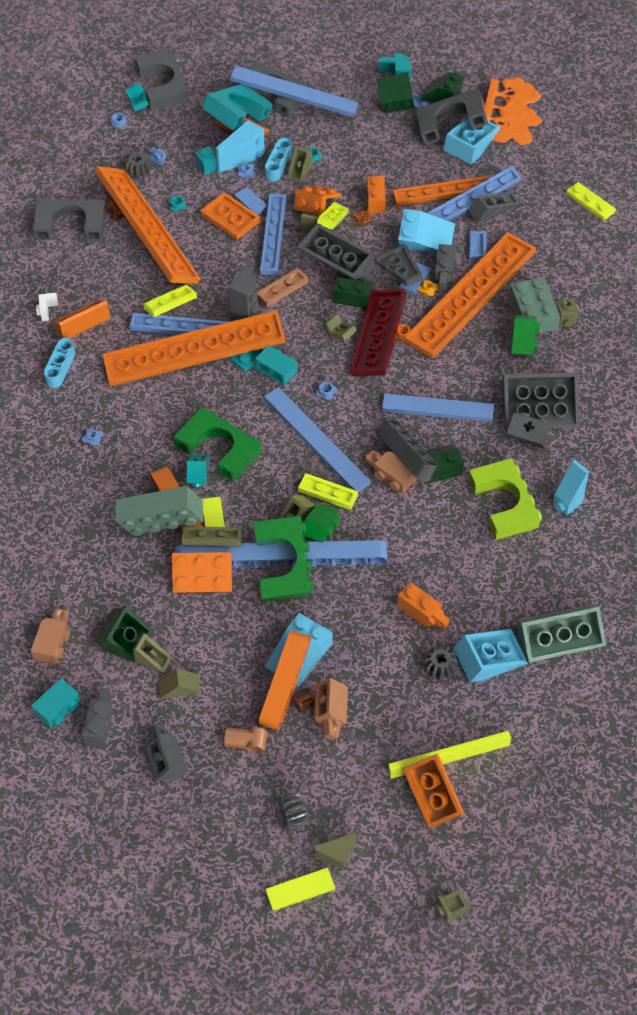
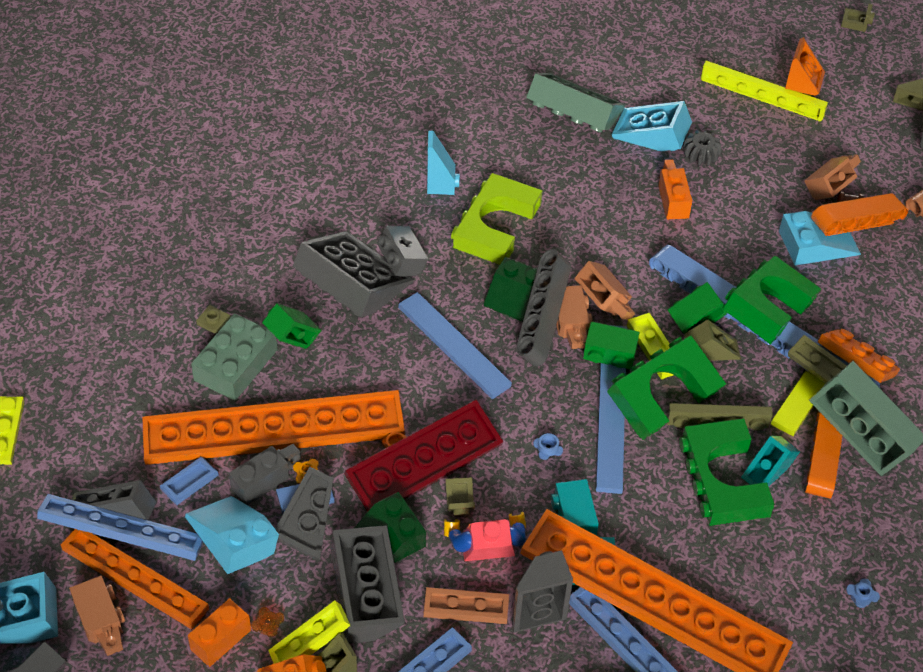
camera: 140 degrees left, 5 degrees down
(250, 473) = (695, 414): none -> olive plate
(300, 477) = (684, 361): none -> green arch
(302, 313) = (487, 538): none -> coral torso
(347, 461) = (611, 345): none -> green brick
(388, 497) = (605, 290): none -> nougat hinge
(436, 165) = (98, 614): none -> nougat hinge

